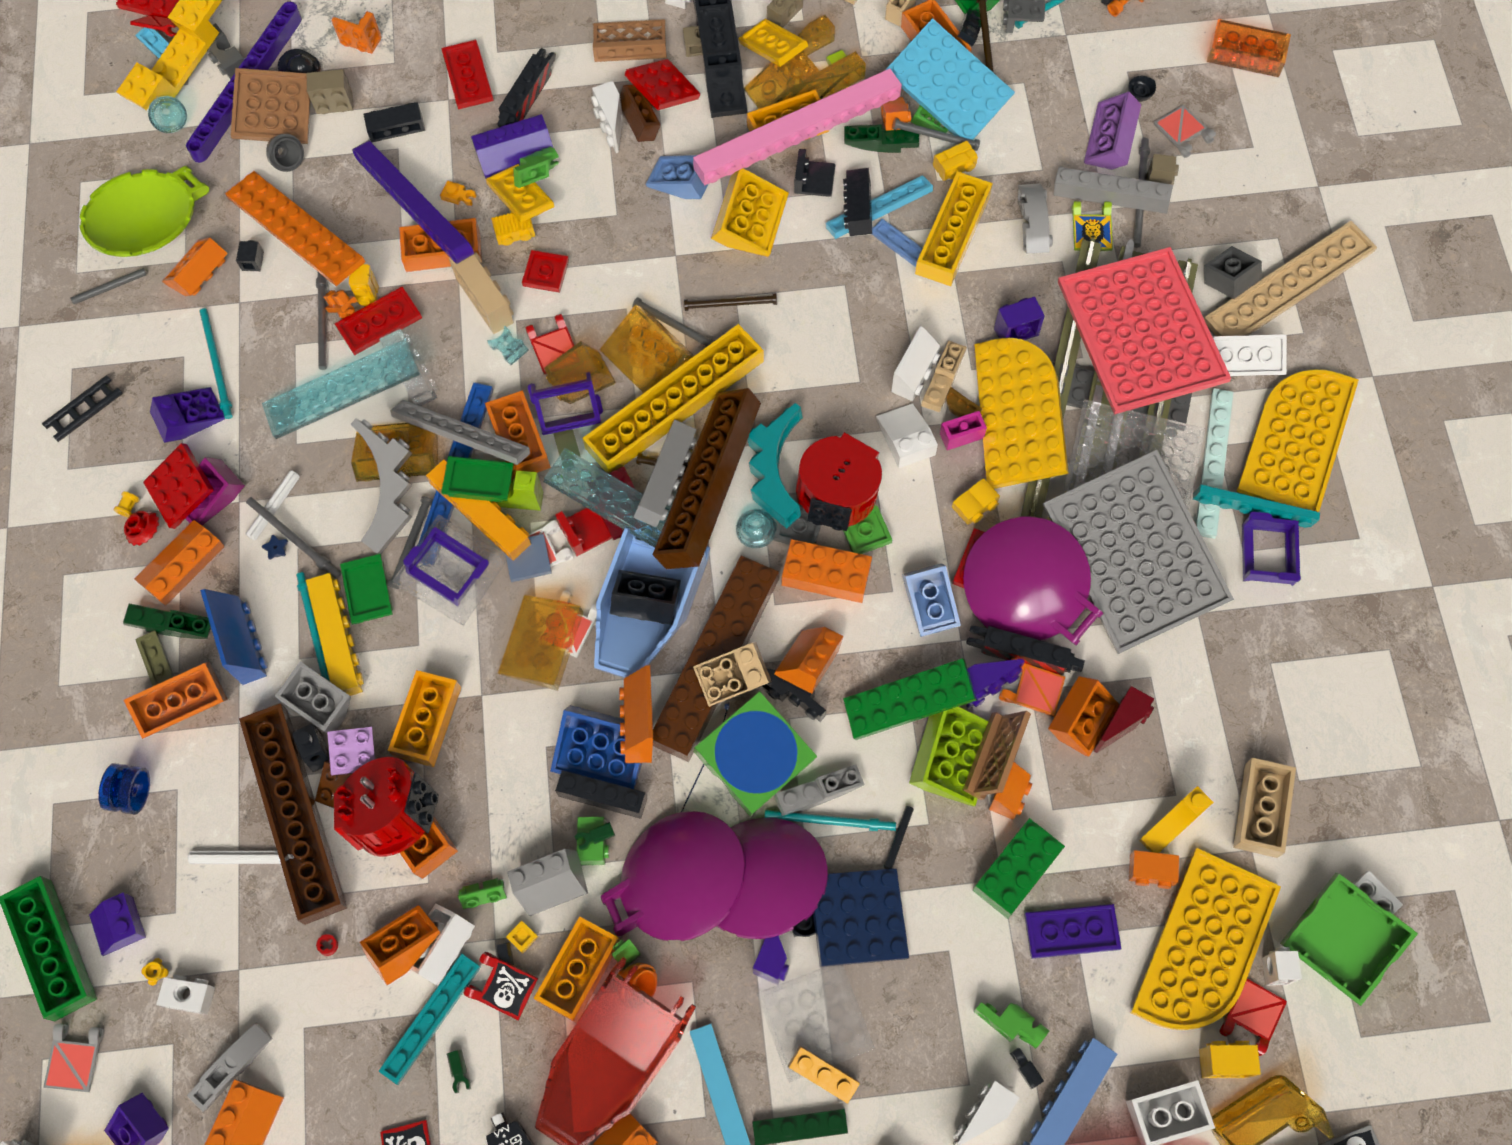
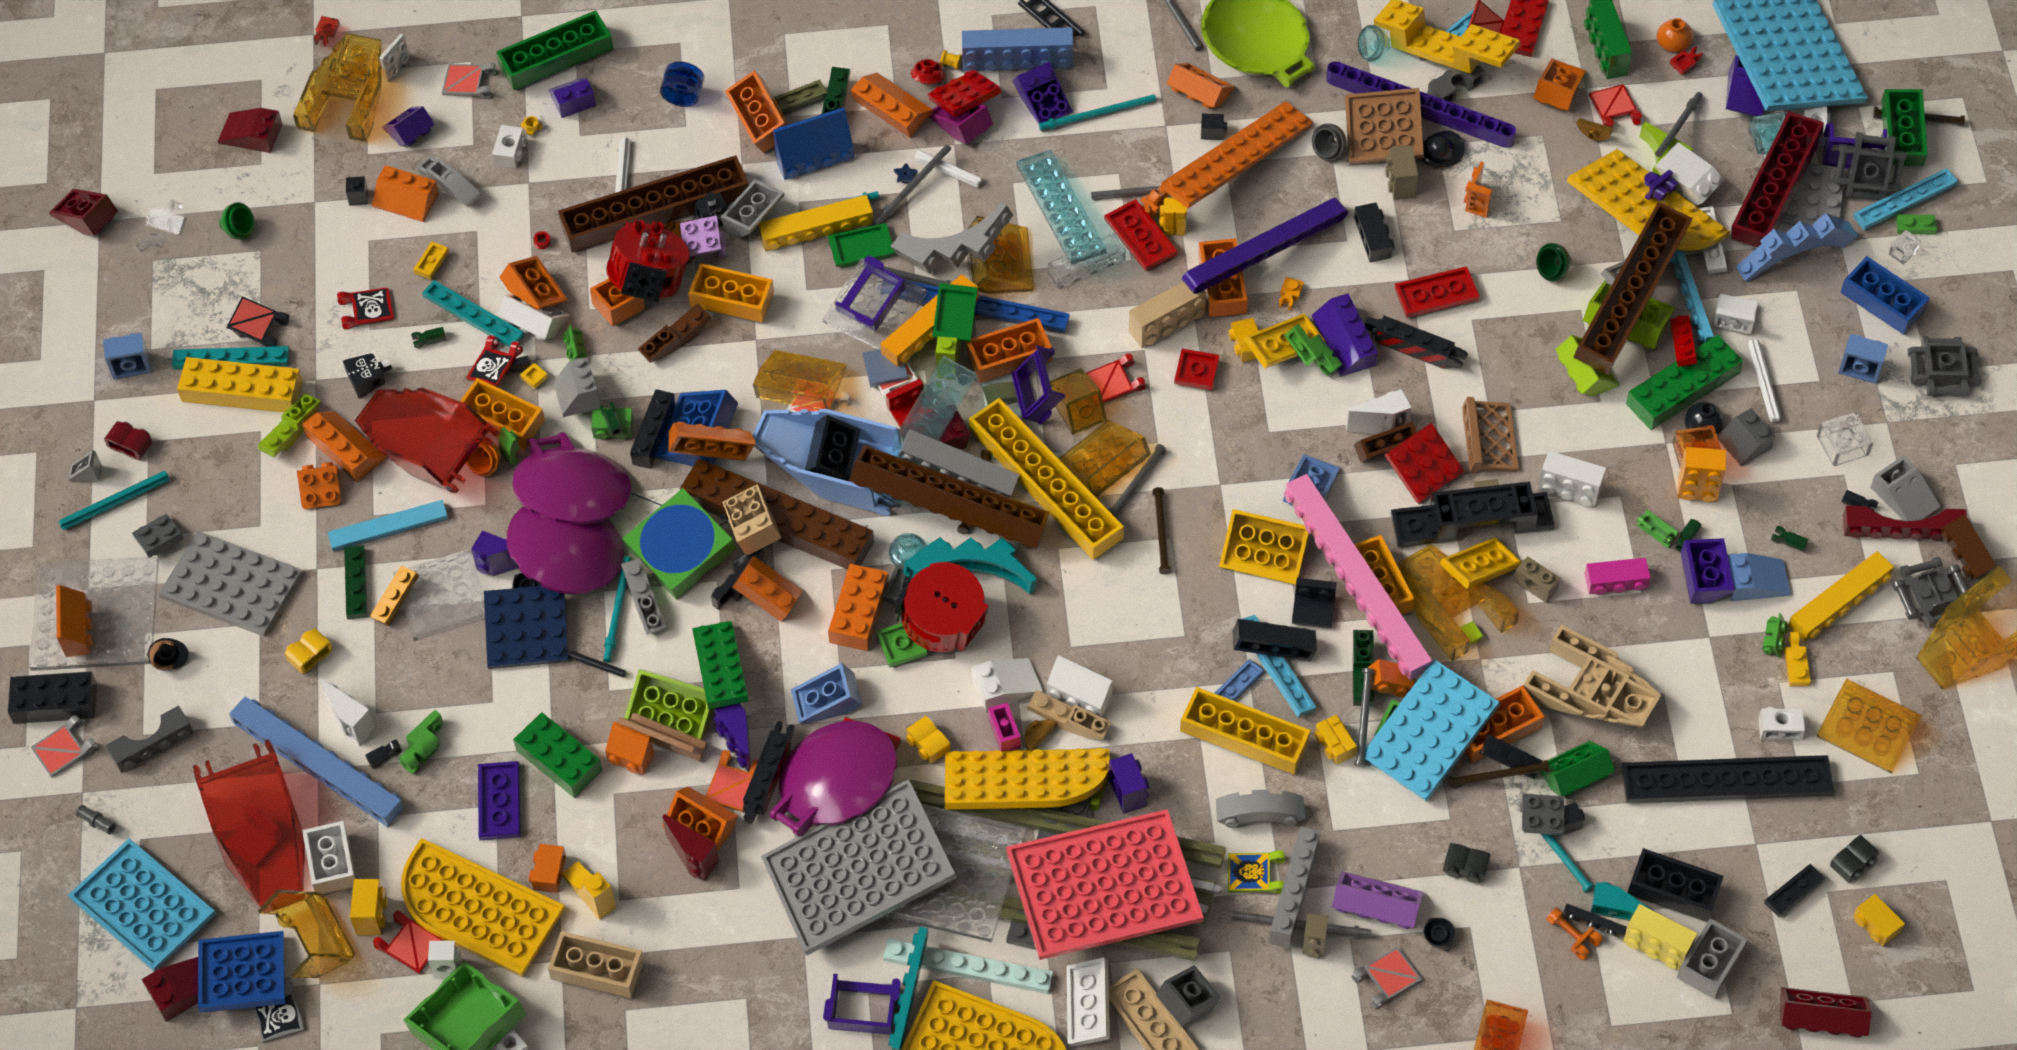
camera: 90 degrees right, 10 degrees down
(126, 433) = (1017, 48): none -> medium blue brick
(346, 1079) = (431, 260): none -> yellow plate
(460, 432) = (1008, 300): light grey plate -> none
(475, 779) = (673, 337): none -> reddish brown slope
(514, 349) = (1107, 347): clear light blue piece -> none
(1071, 67) = (1466, 863): none -> pearl dark grey brick

